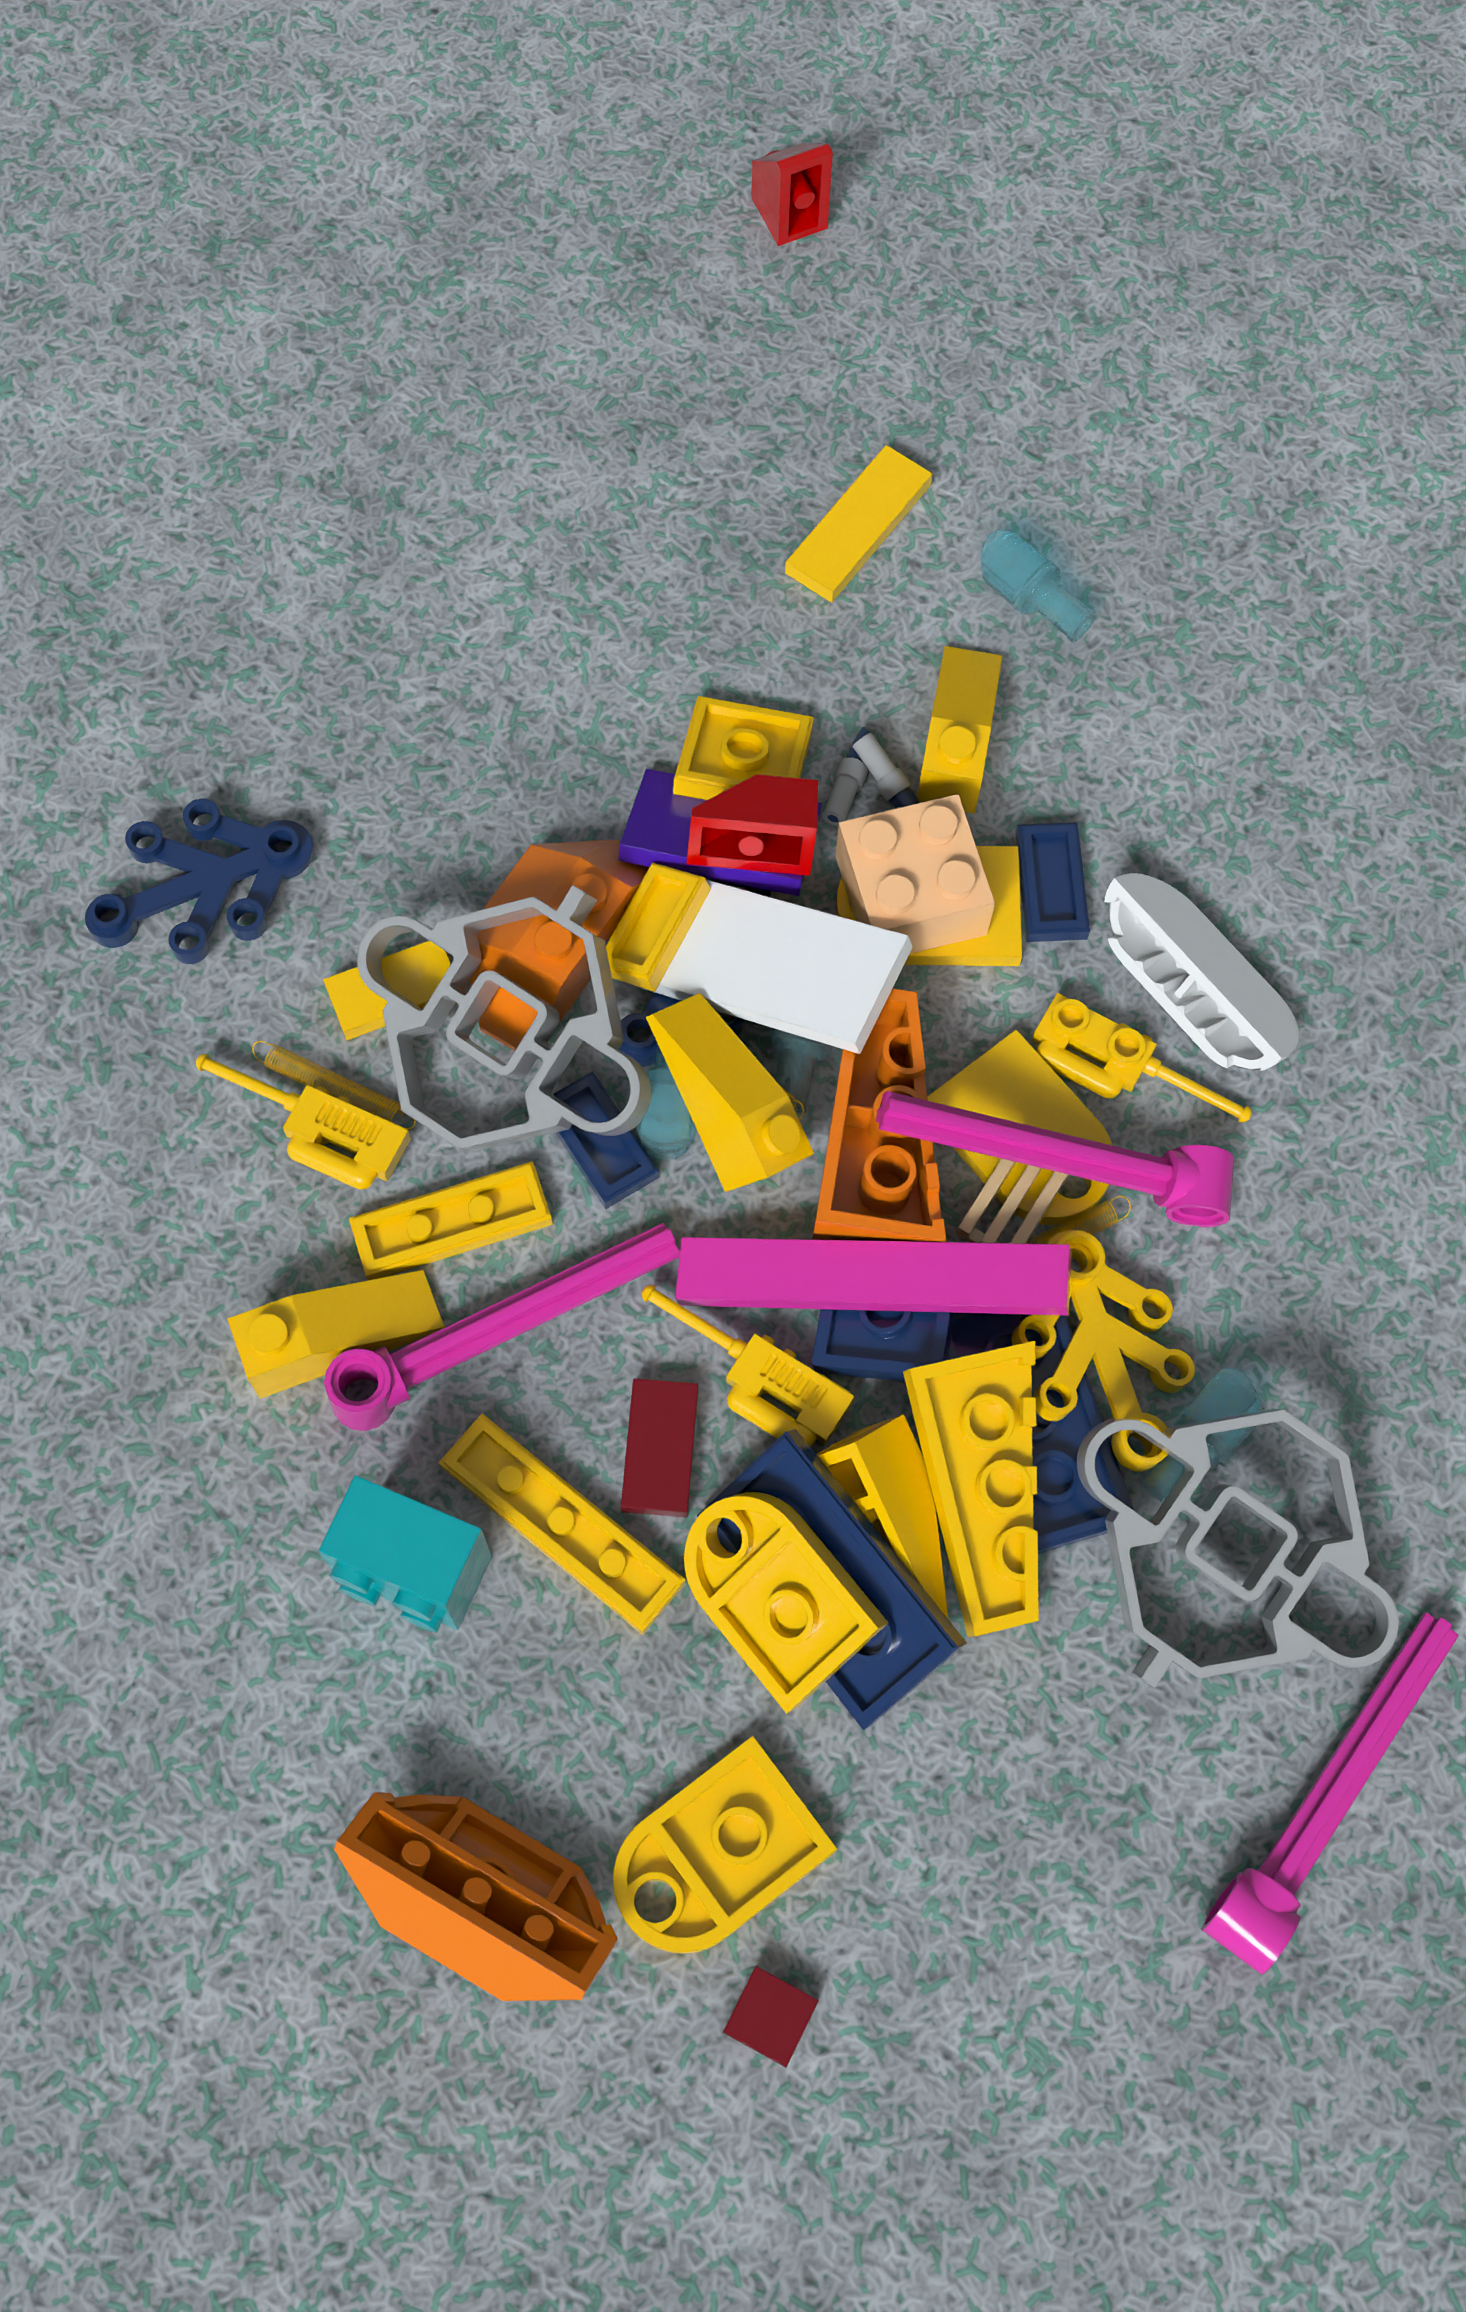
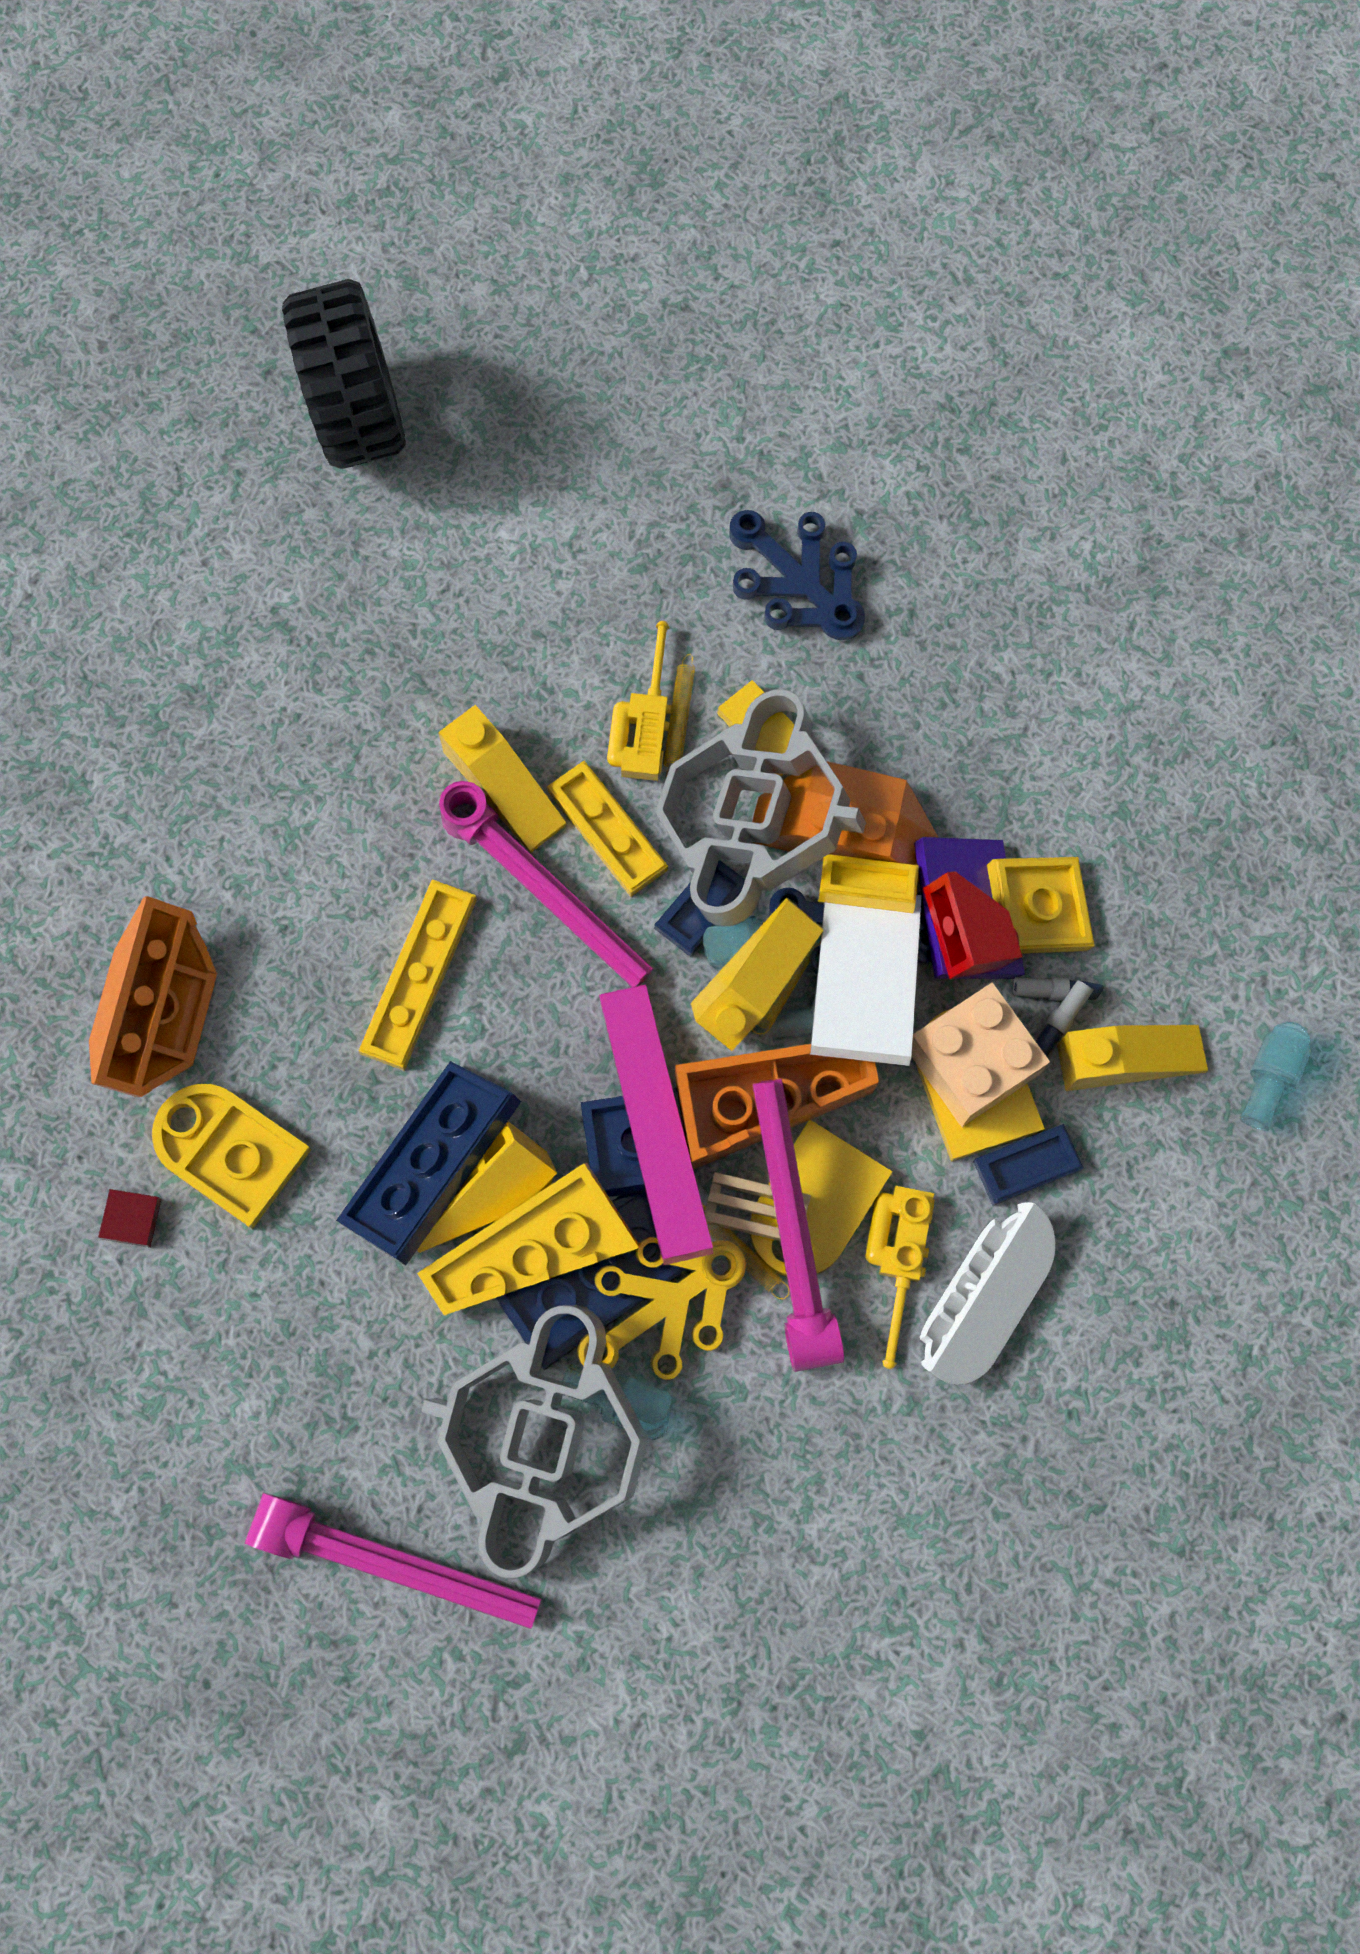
camera: 70 degrees right, 5 degrees up
(405, 1554) = (351, 875): teal brick -> none
(659, 1448) = (491, 1021): dark red tile -> none
(768, 1370) = (568, 1073): yellow piece -> none
(779, 1597) = (406, 1129): yellow tile -> none
(858, 523) = (1279, 927): yellow tile -> none

